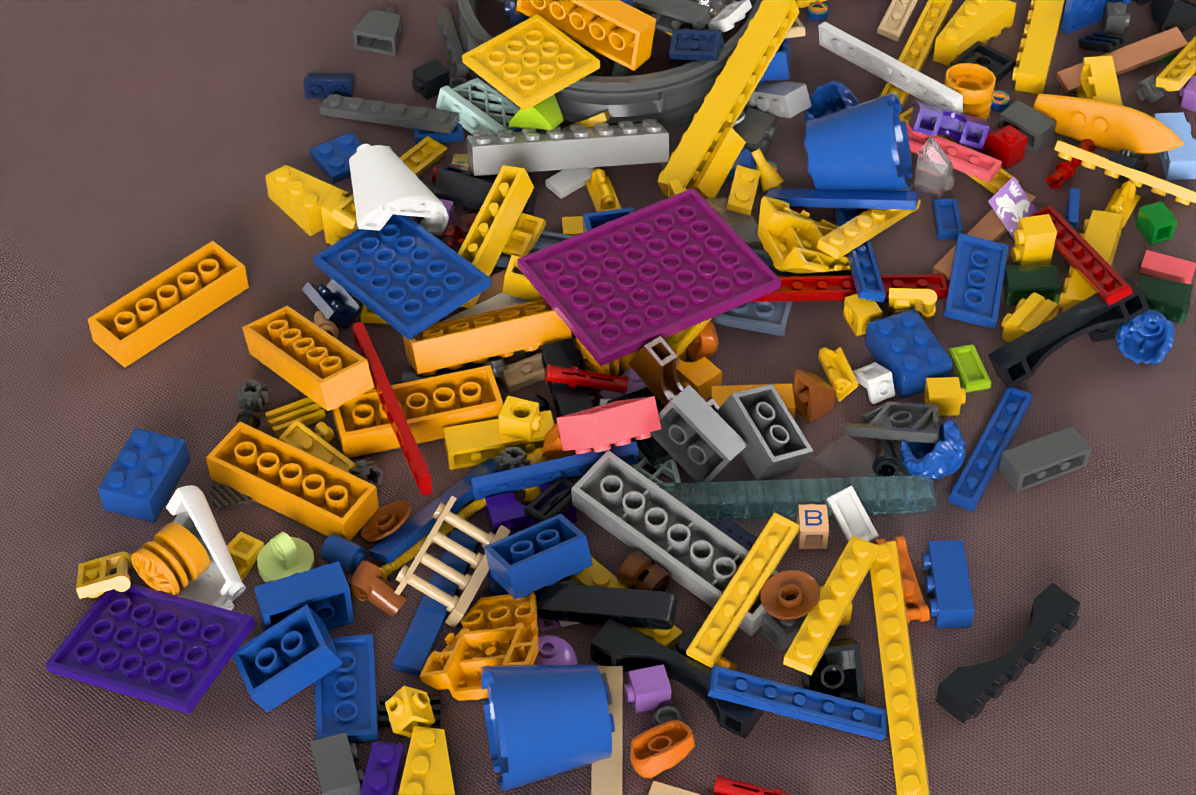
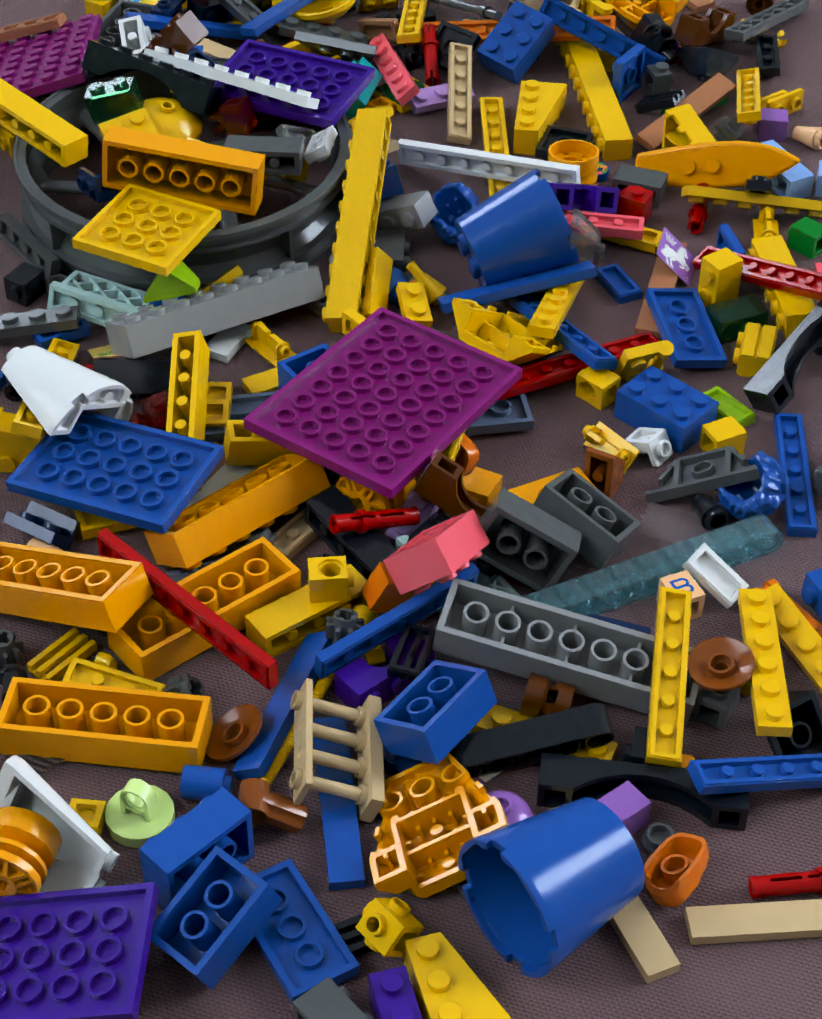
camera: 25 degrees left, 5 degrees down
(696, 44) = (308, 175): dark blue bracket -> none

